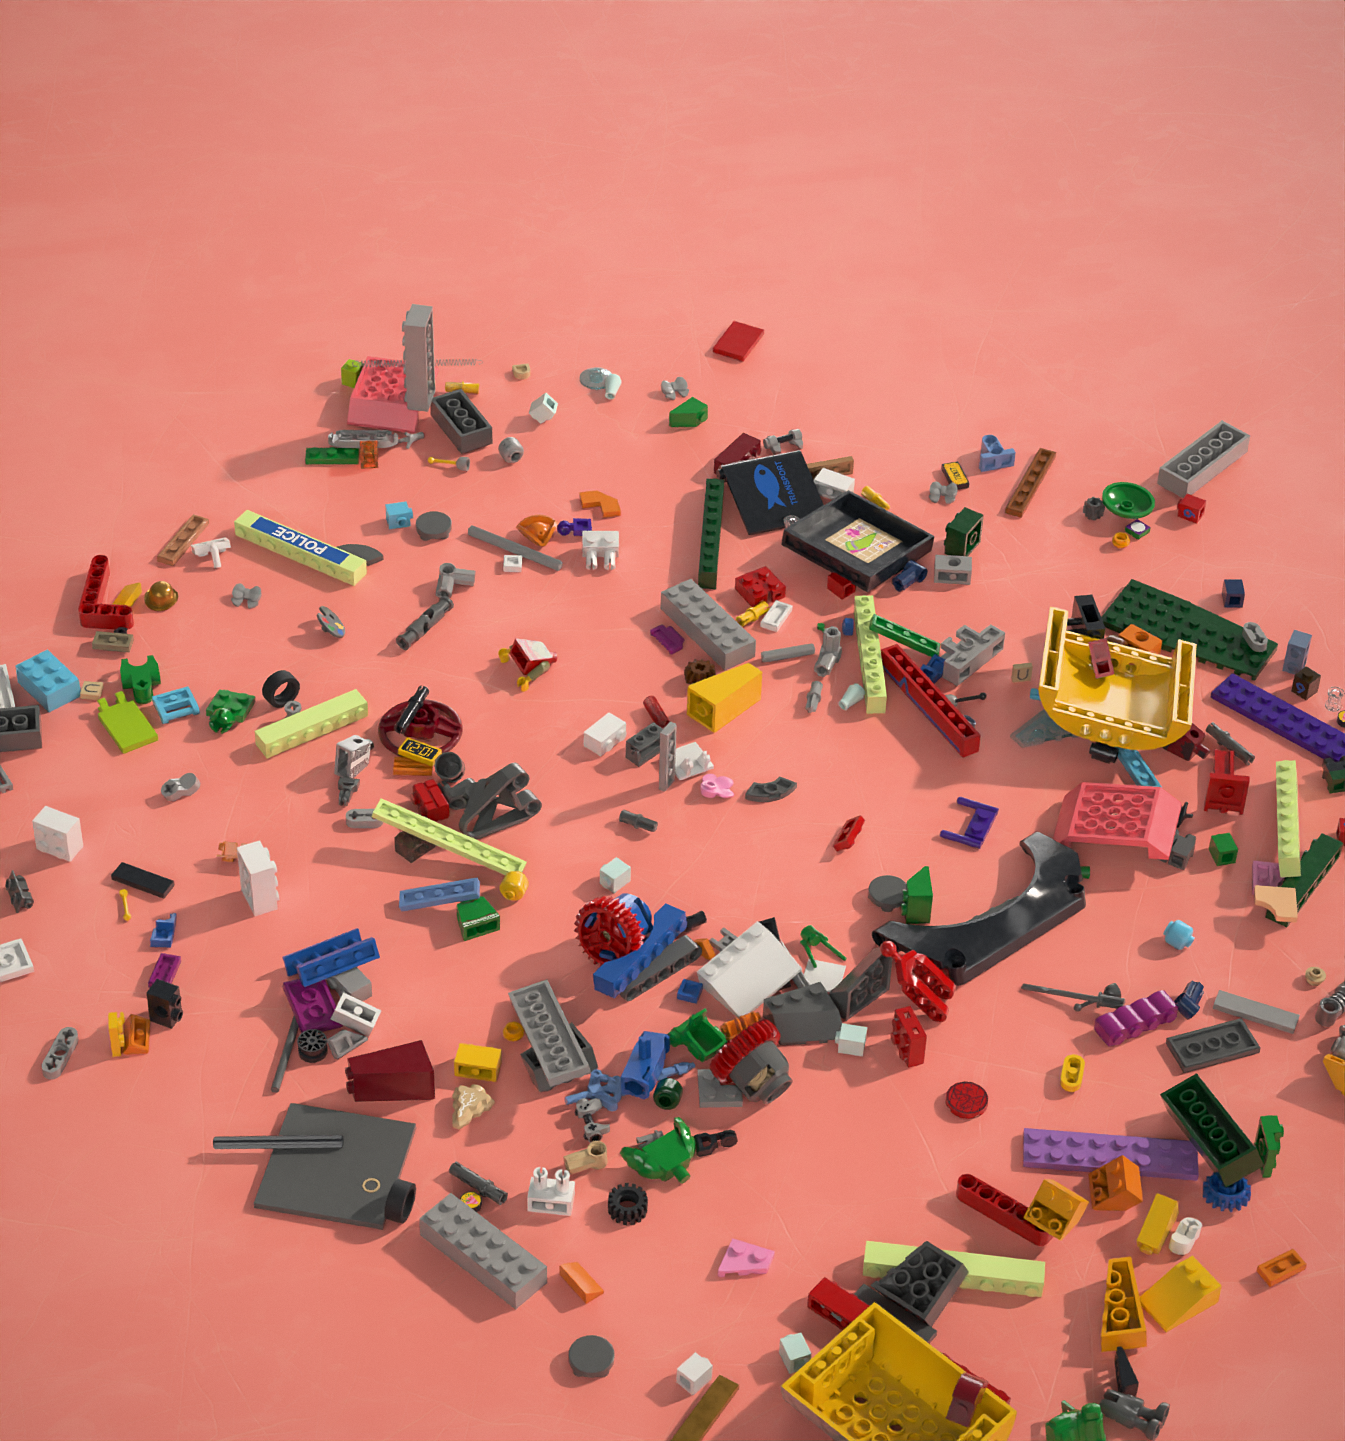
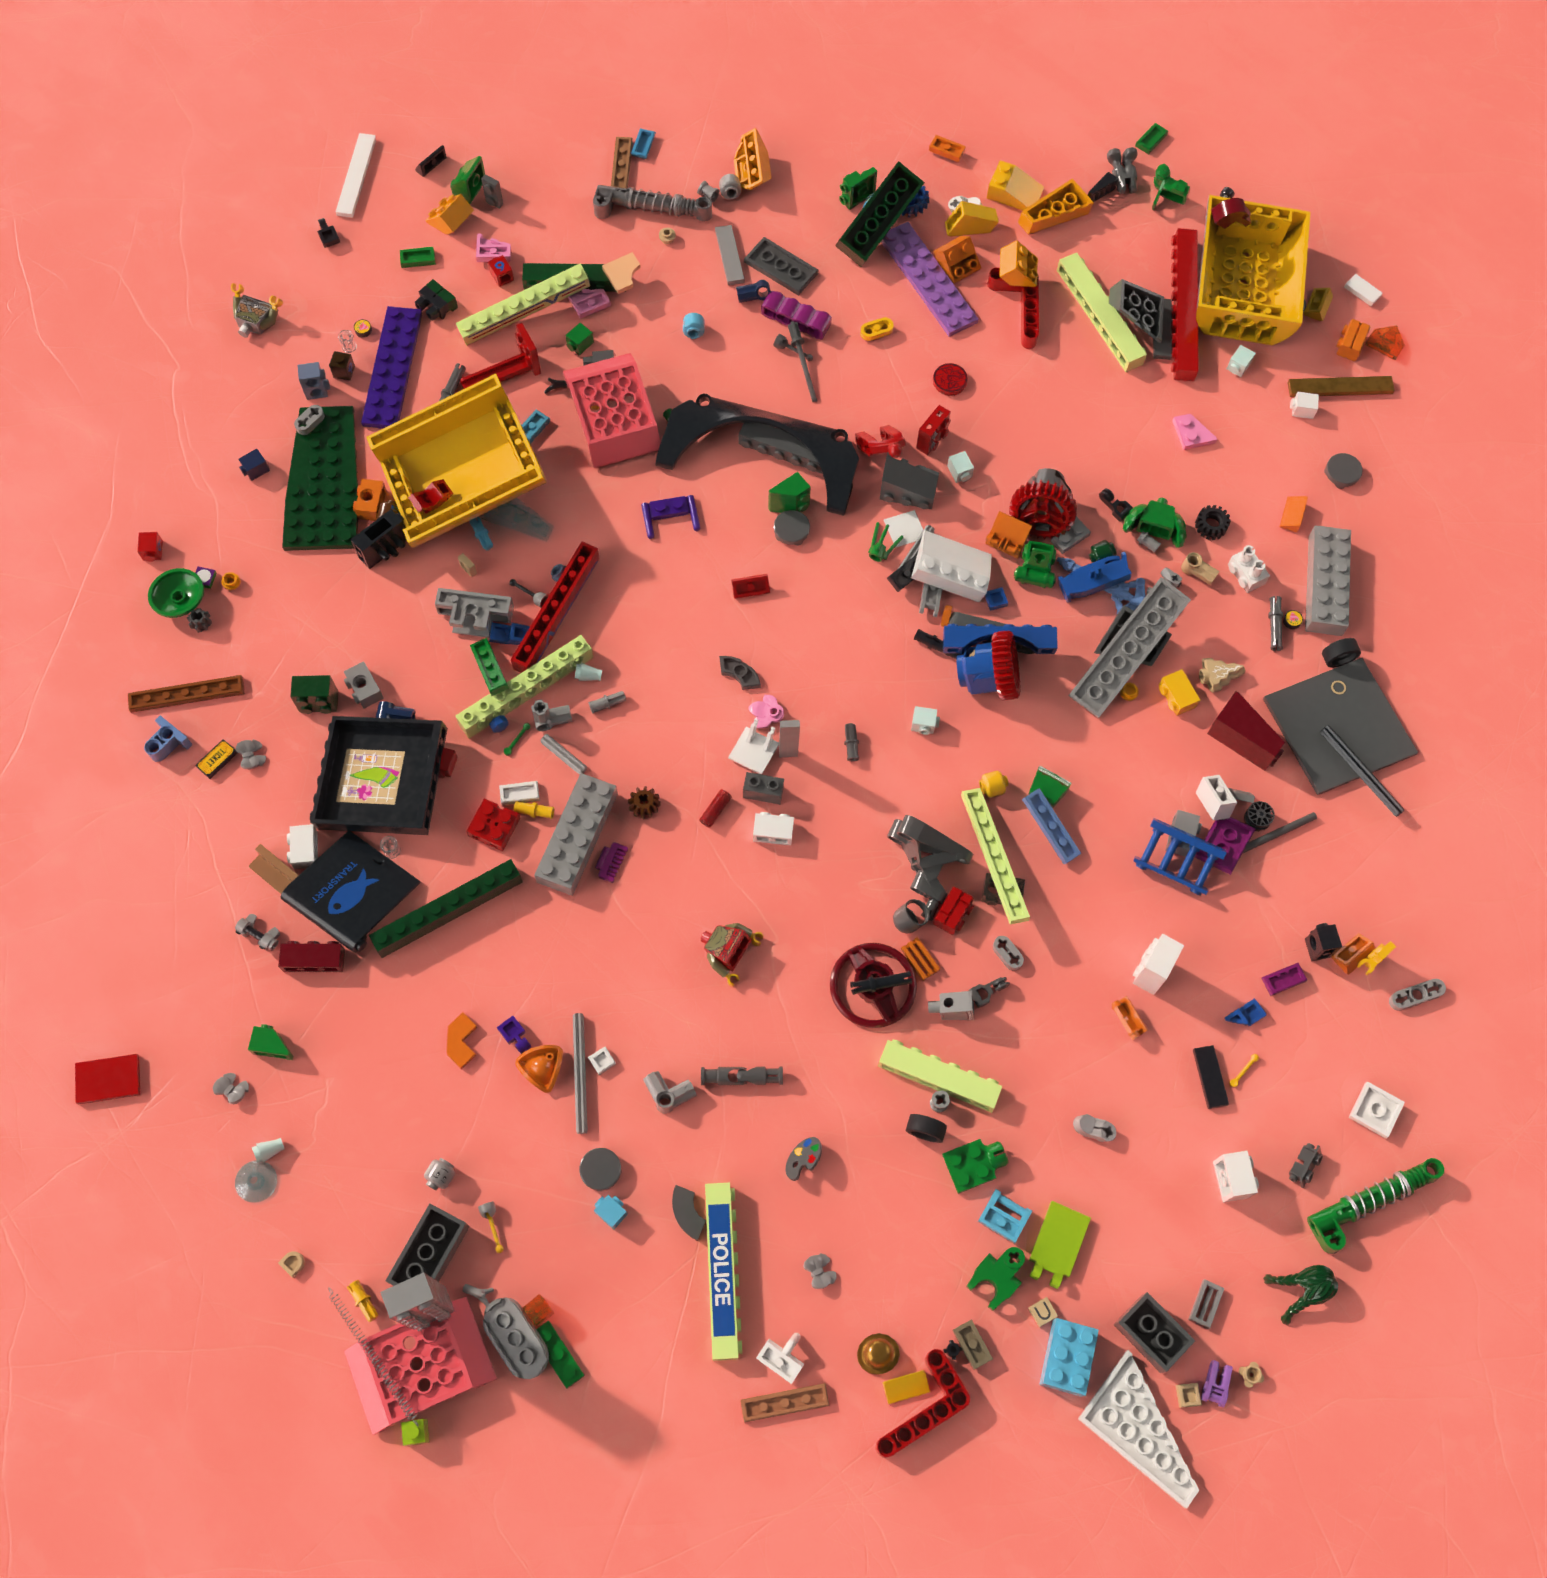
camera: 125 degrees left, 25 degrees up
(419, 751) = (907, 956): tile -> none
(543, 408) = (354, 1186): brick -> none
(600, 544) = (531, 991): white brick -> none
(724, 696) = (666, 756): yellow slope -> none
(803, 1015) = (959, 513): dark grey wedge -> none
(874, 497) = (298, 803): yellow axle -> none
(1203, 459) = (72, 564): light grey brick -> none

